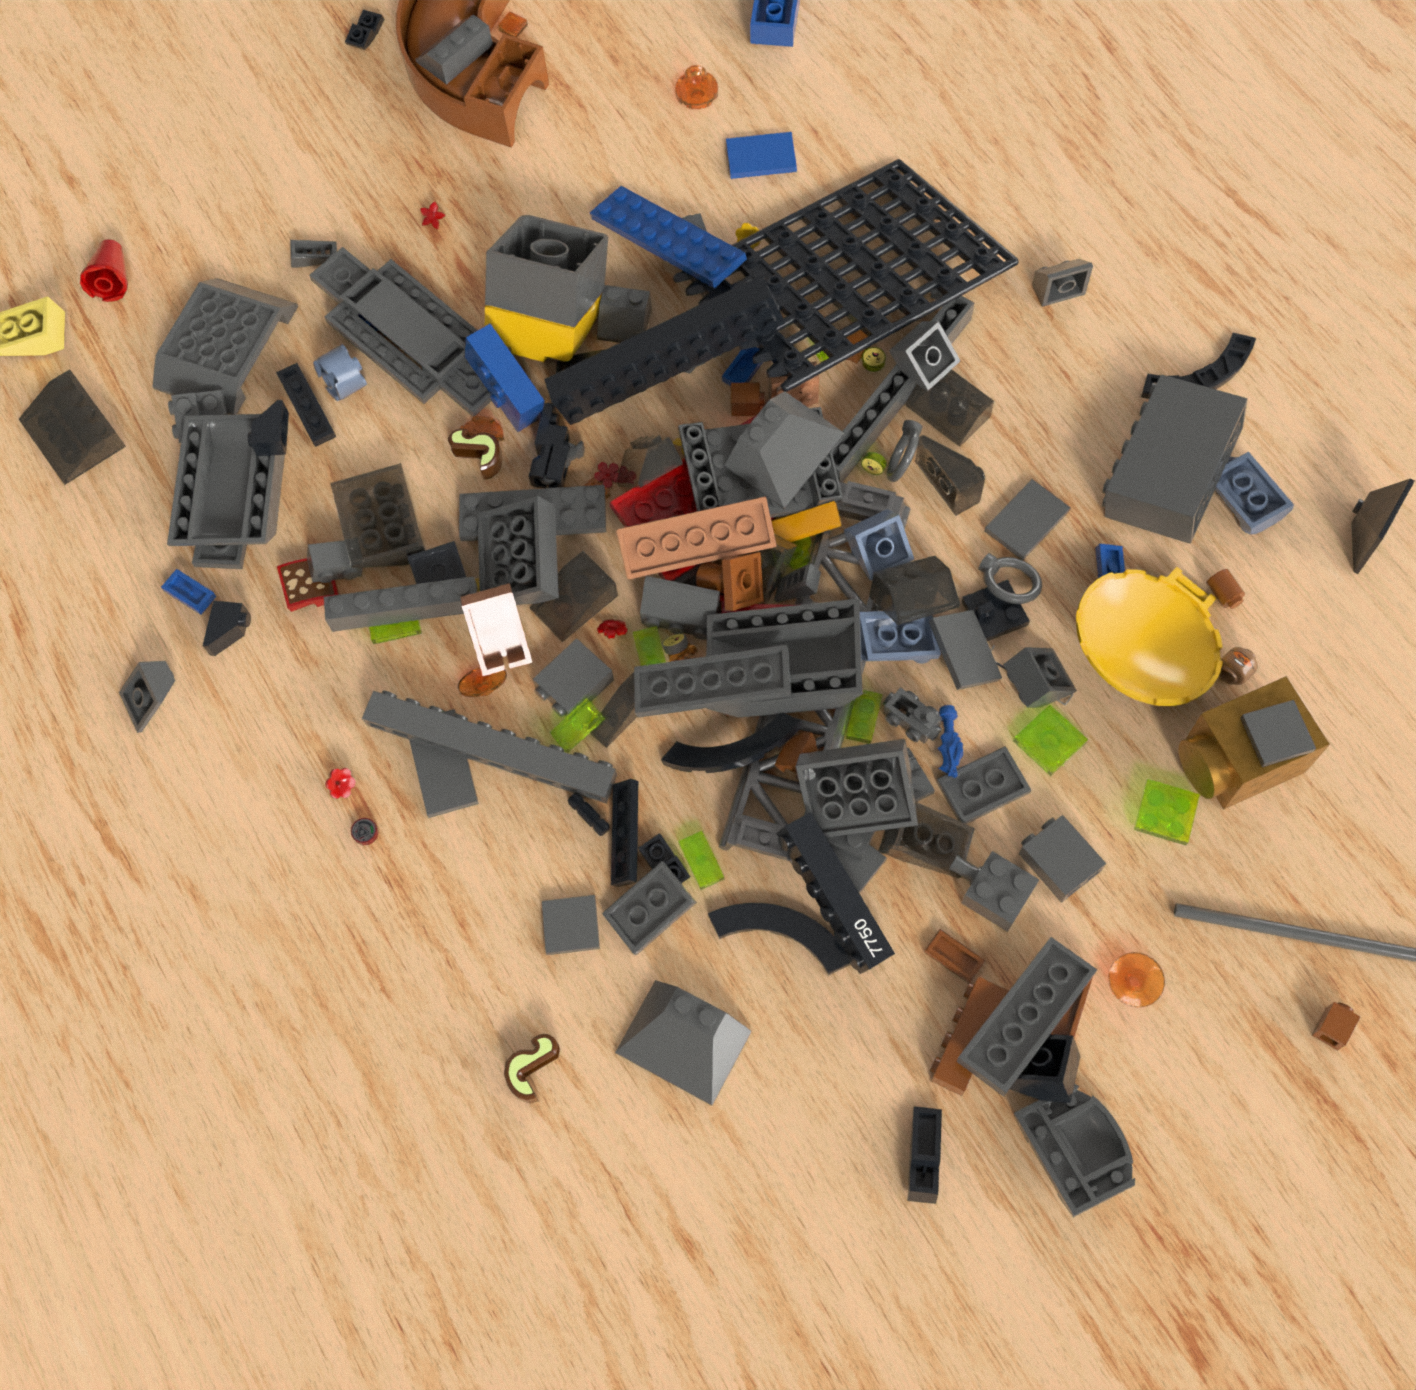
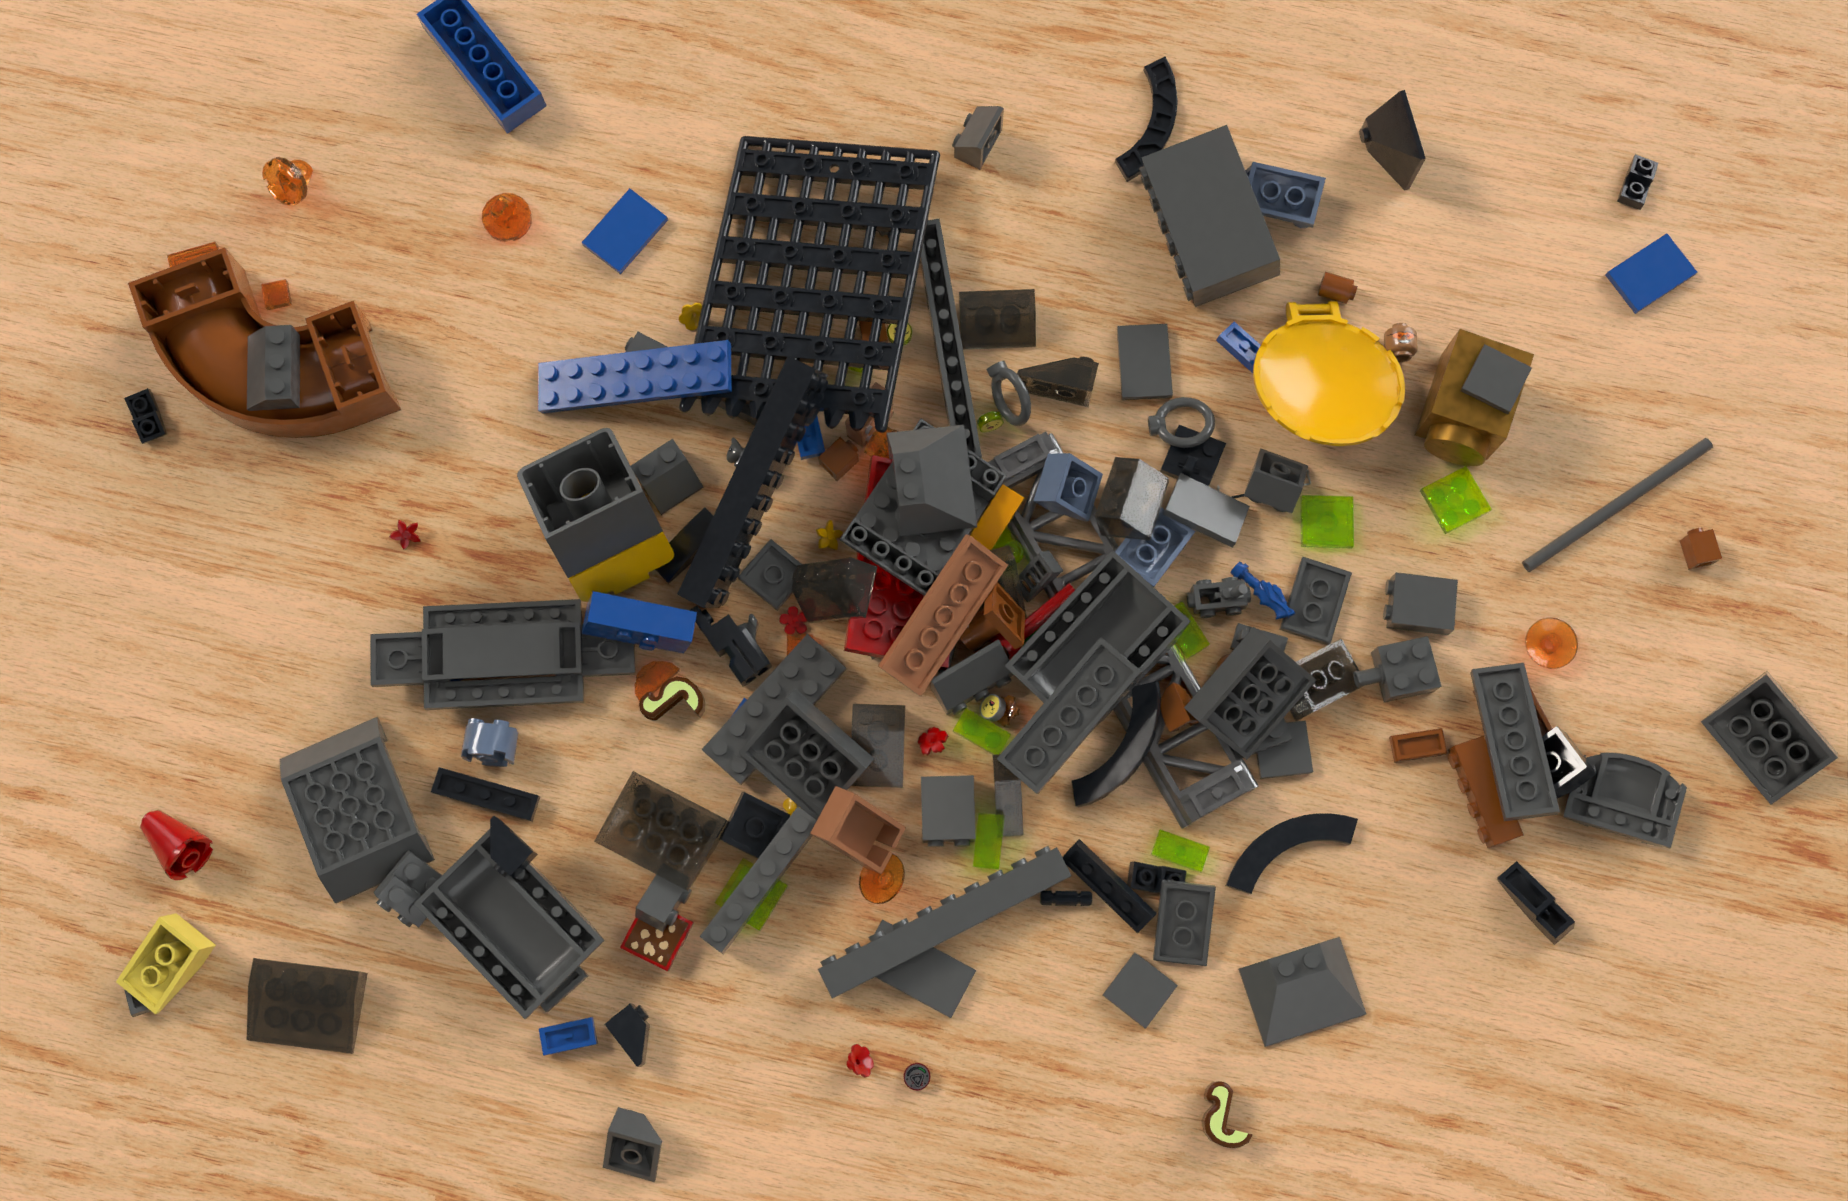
camera: 50 degrees left, 10 degrees up
(300, 248) = (343, 665): dark grey slope -> none
(621, 429) = (771, 574): none -> dark grey tile
(834, 893) = (1304, 784): black brick -> none
(925, 354) = (951, 299): dark grey slope -> none
(1249, 1220) = (1769, 738): none -> dark grey slope

